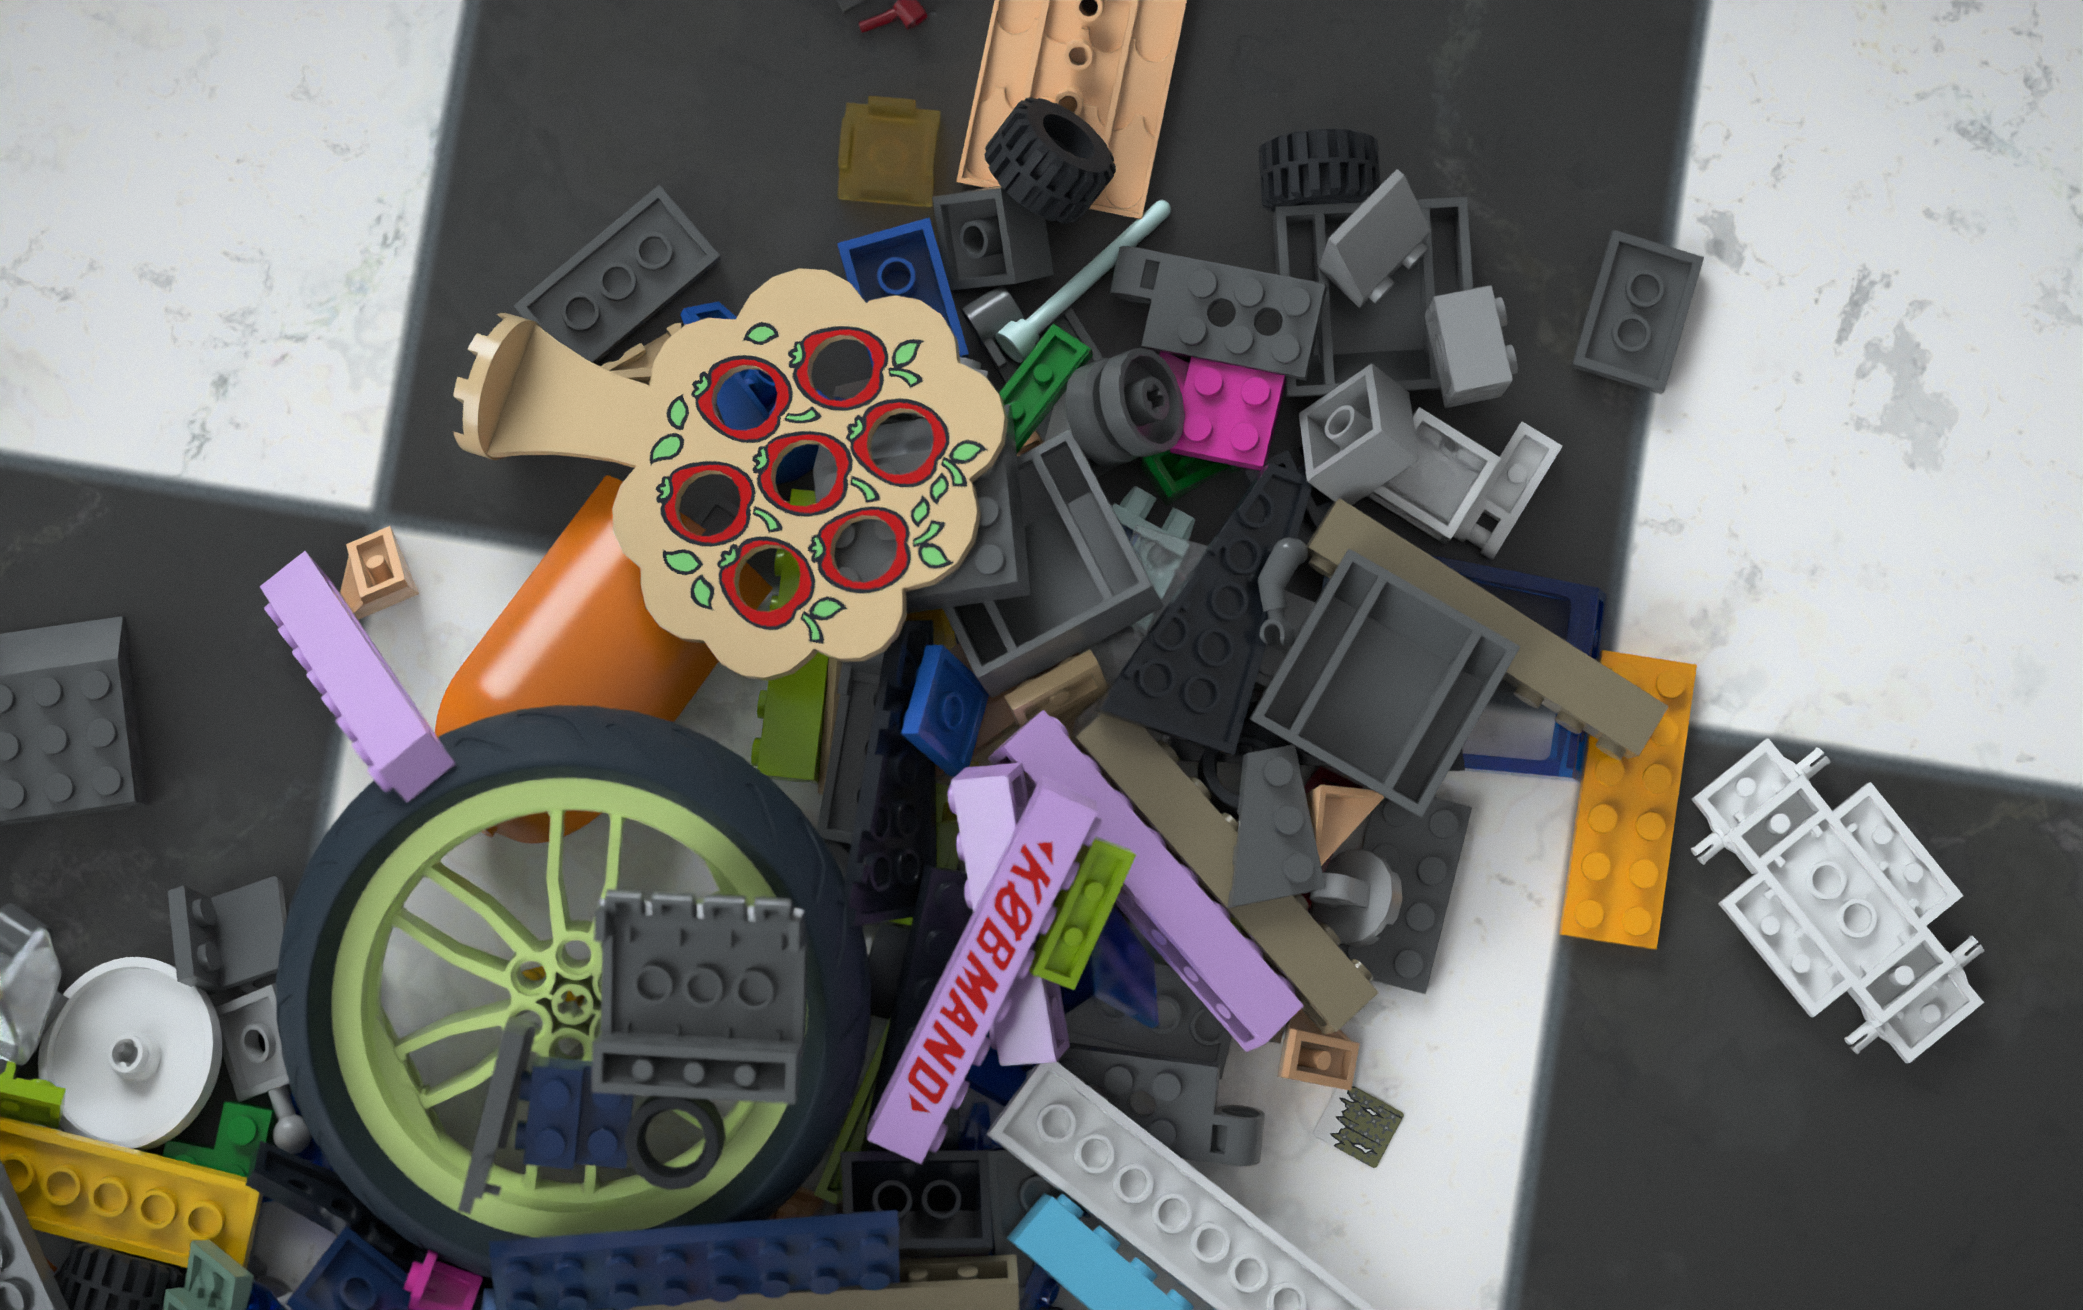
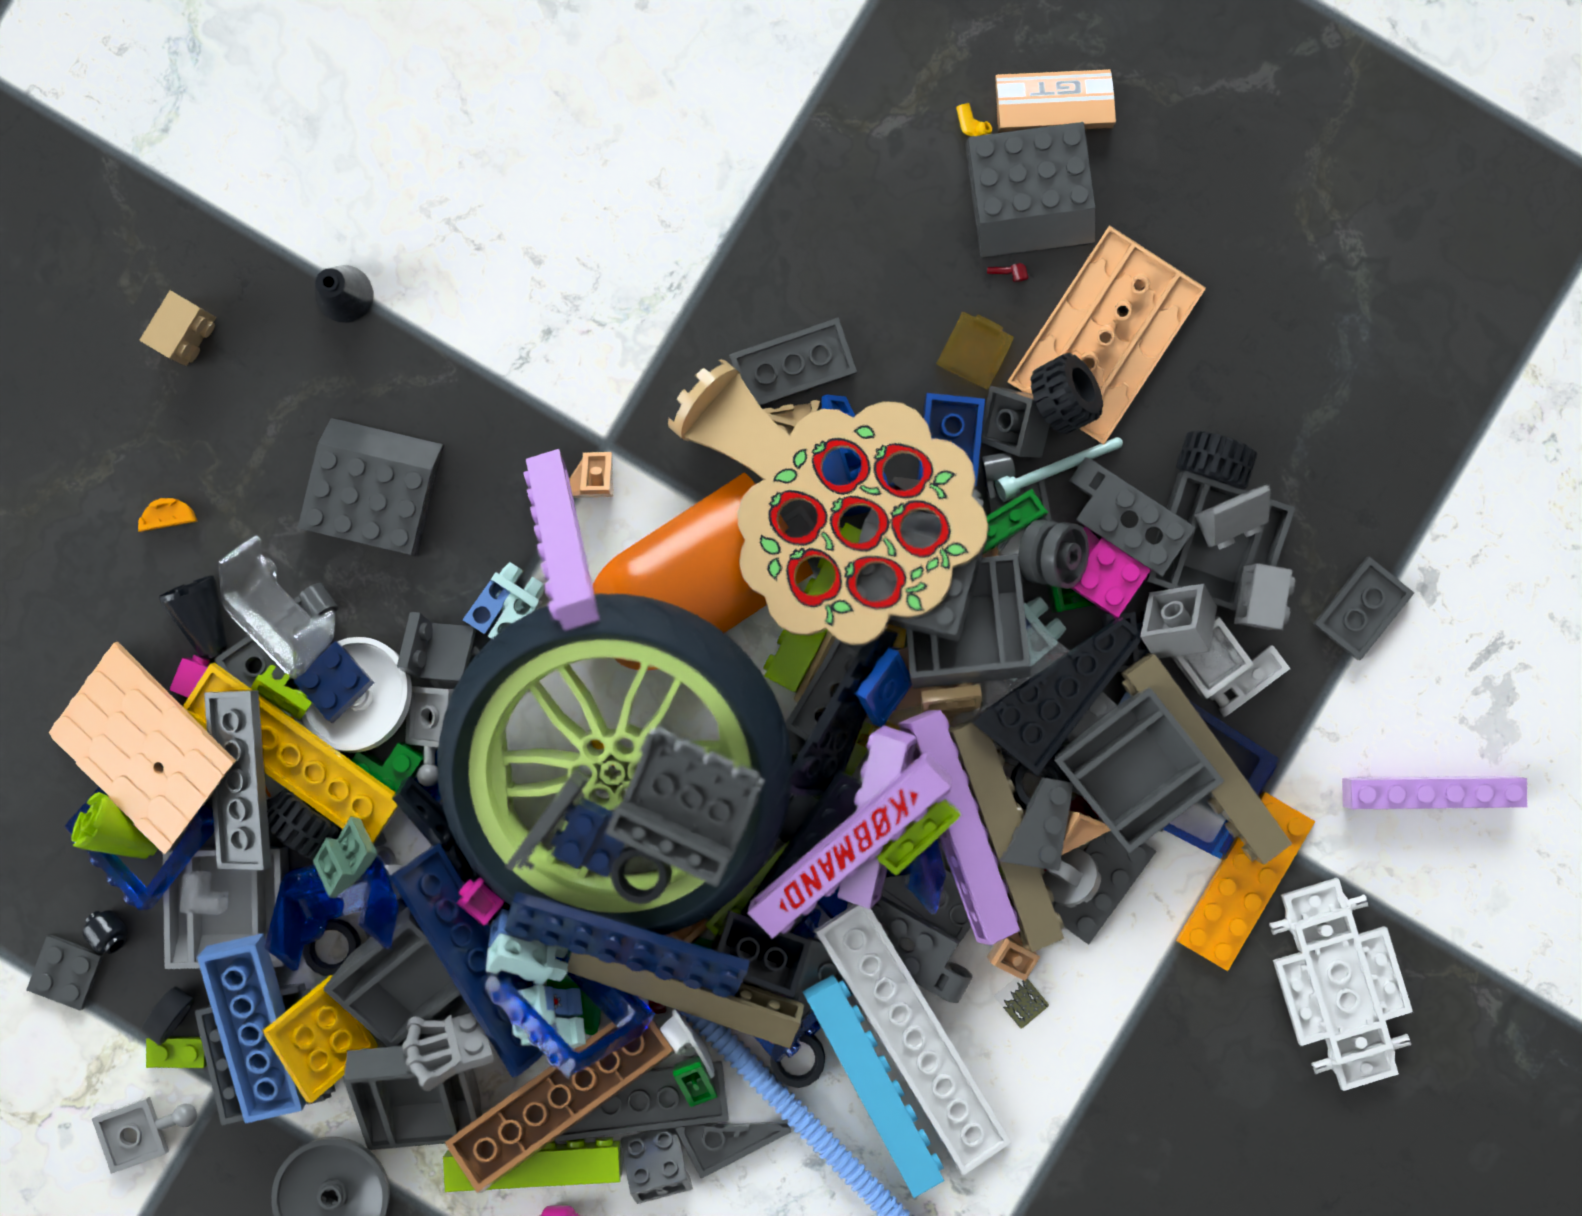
camera: 25 degrees right, 5 degrees up
(89, 1046) = (334, 682): none -> dark blue plate
(303, 815) = (506, 597): none -> hips
(1272, 581) = (1098, 686): dark grey arm -> none
(1859, 547) = (1434, 792): none -> lavender brick

